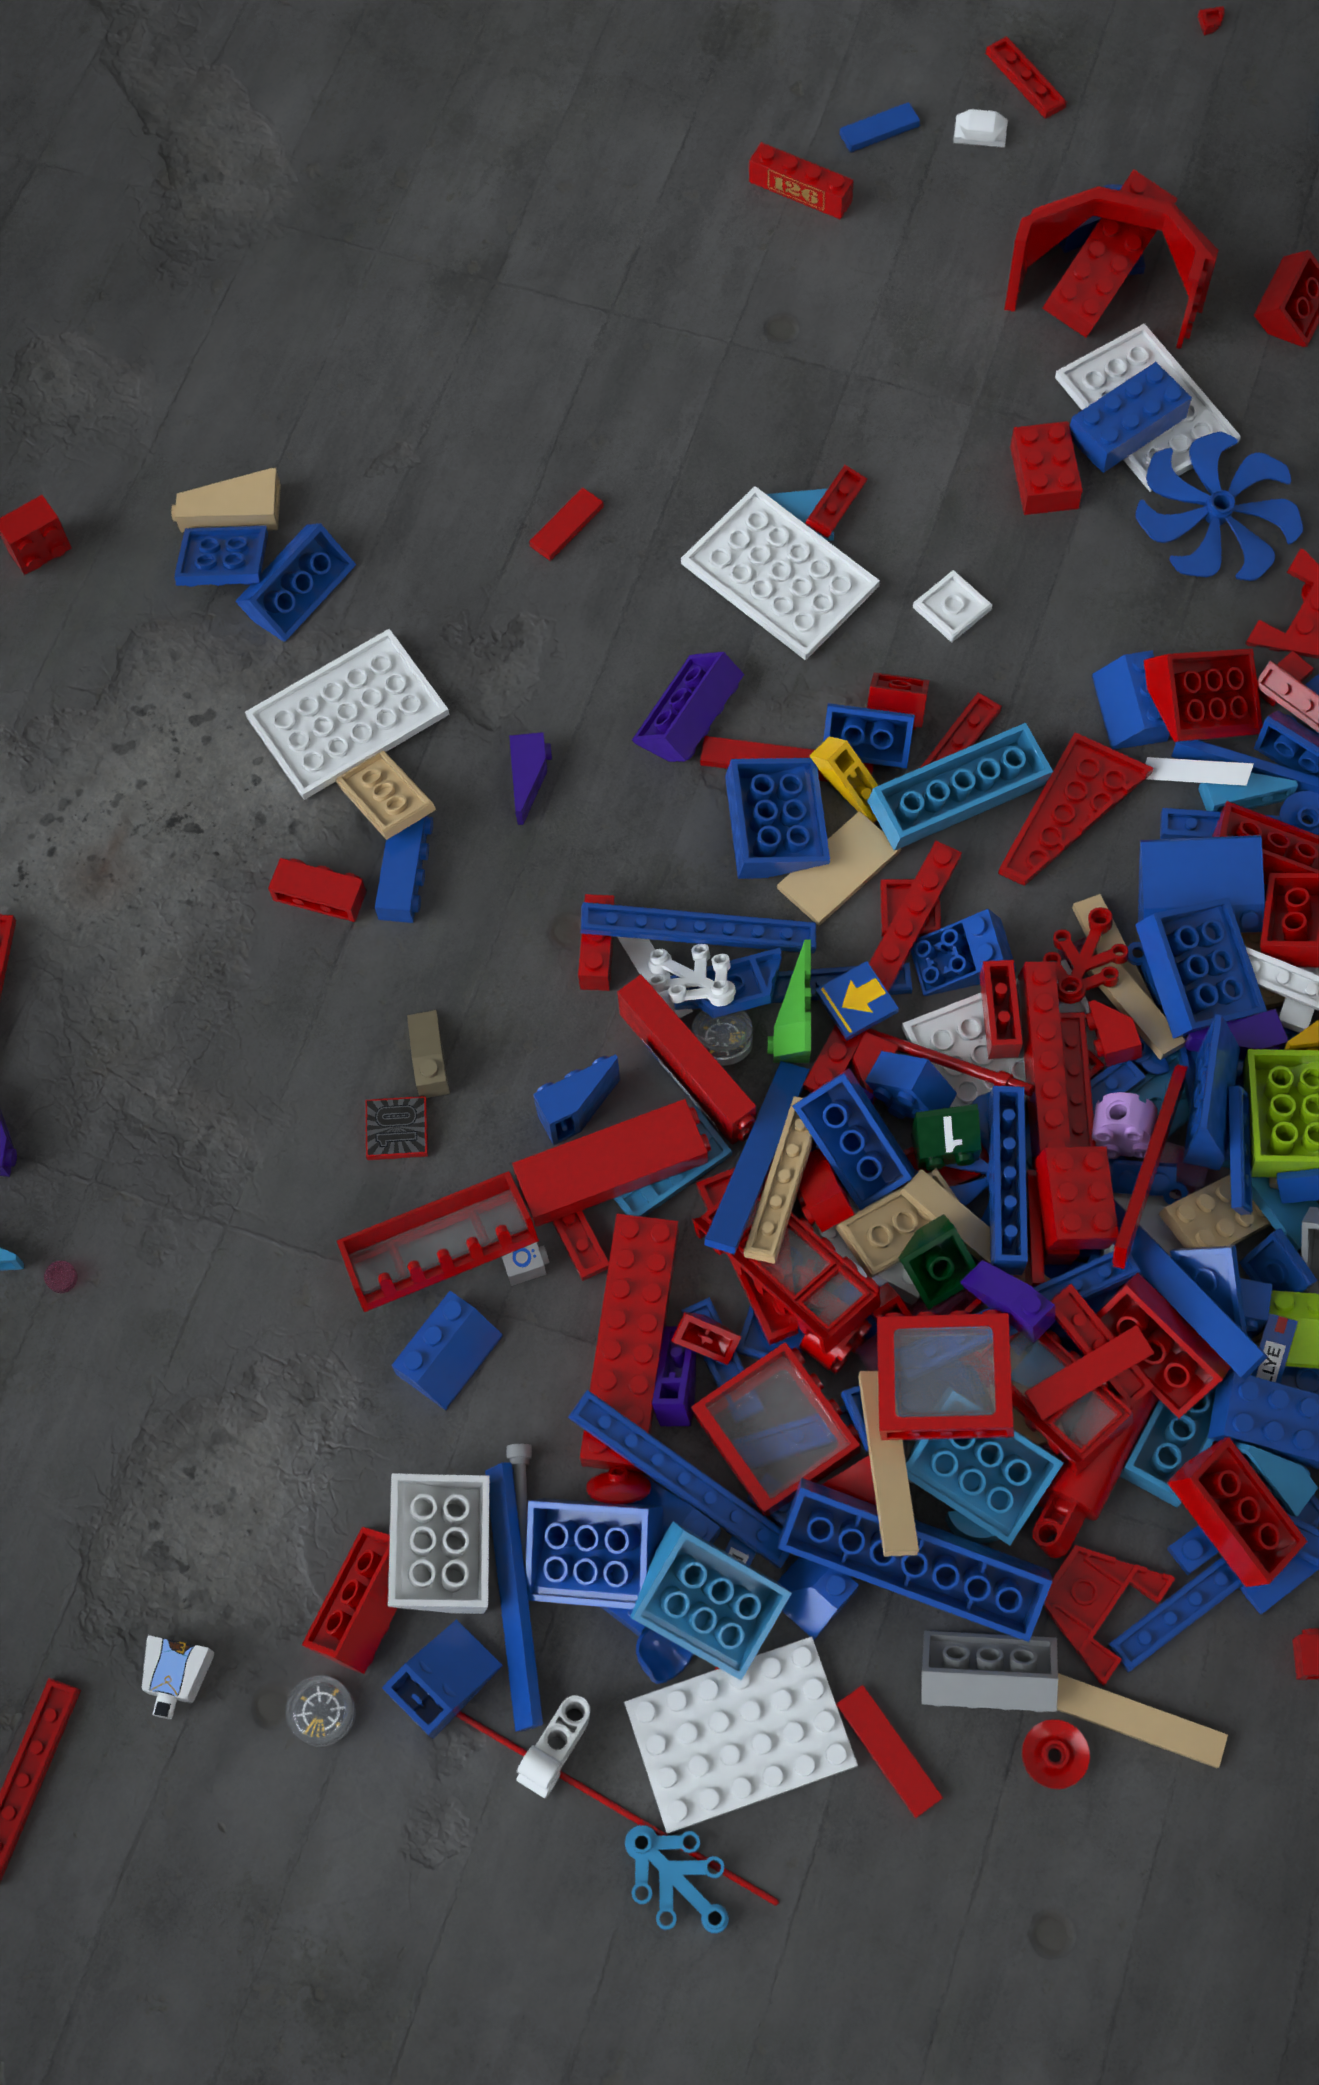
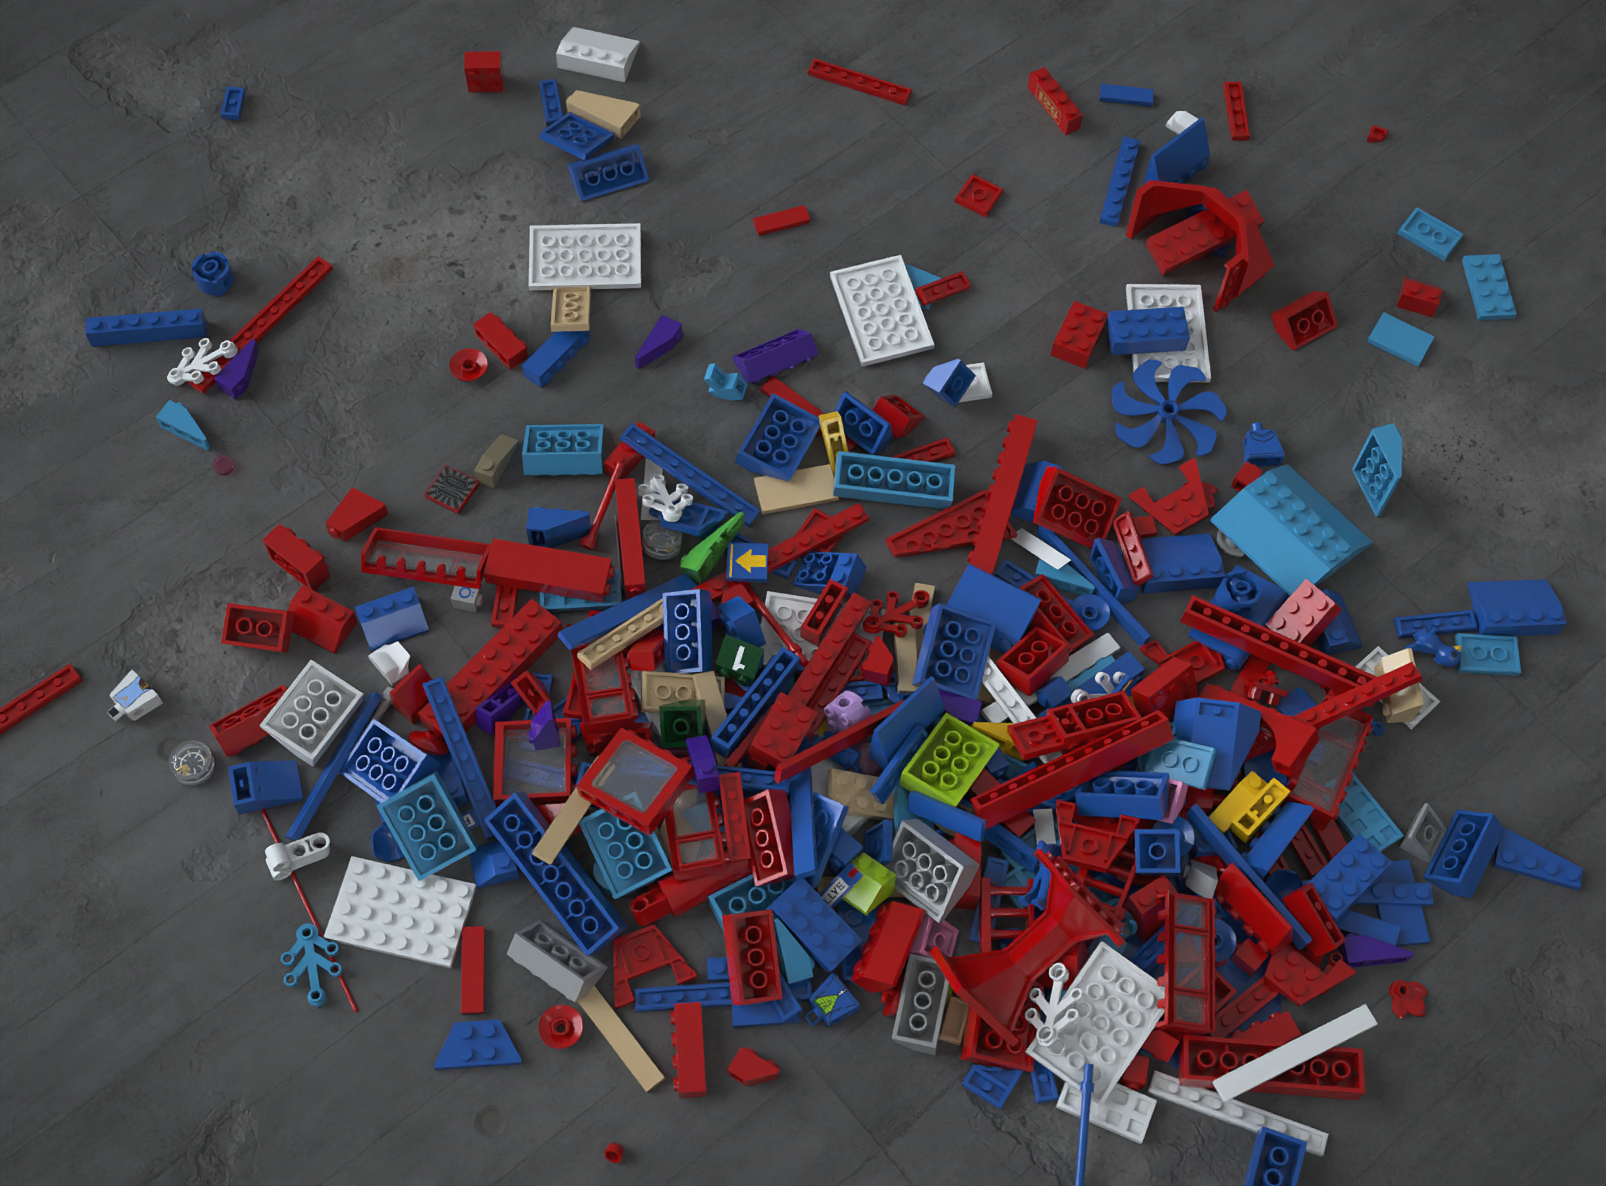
camera: 25 degrees right, 5 degrees down
(148, 528) = (550, 101): none -> blue tile
(164, 429) = (597, 54): none -> white slope
(261, 1344) = (296, 557): none -> red brick
(279, 1472) = (257, 627): none -> red brick
(293, 1239) = (355, 514): none -> red slope
(298, 935) = (468, 358): none -> red dish
(349, 1410) = (321, 619): none -> red slope
(487, 1408) = (392, 662): none -> white slope
(507, 988) = (563, 449): none -> dark azure slope
(534, 286) = (859, 82): none -> red tile
(555, 1435) = (410, 695): none -> red slope
(629, 1091) = (589, 541): none -> red piece
(657, 783) = (723, 385): none -> dark azure brick
(773, 1378) = (544, 729): none -> dark purple slope
(791, 355) = (979, 195): none -> red tile
(939, 618) = (949, 381): none -> blue slope
(950, 243) = (1119, 181): none -> blue plate
(967, 1846) = (477, 1045): none -> blue wing
(1013, 181) = (1181, 156): none -> blue slope
(1089, 1372) = (716, 826): red tile -> none
(1106, 730) = (1002, 493): none -> red brick
(1235, 1680) = (690, 1050): none -> red brick
(1237, 1872) = (614, 1152): none -> red hinge

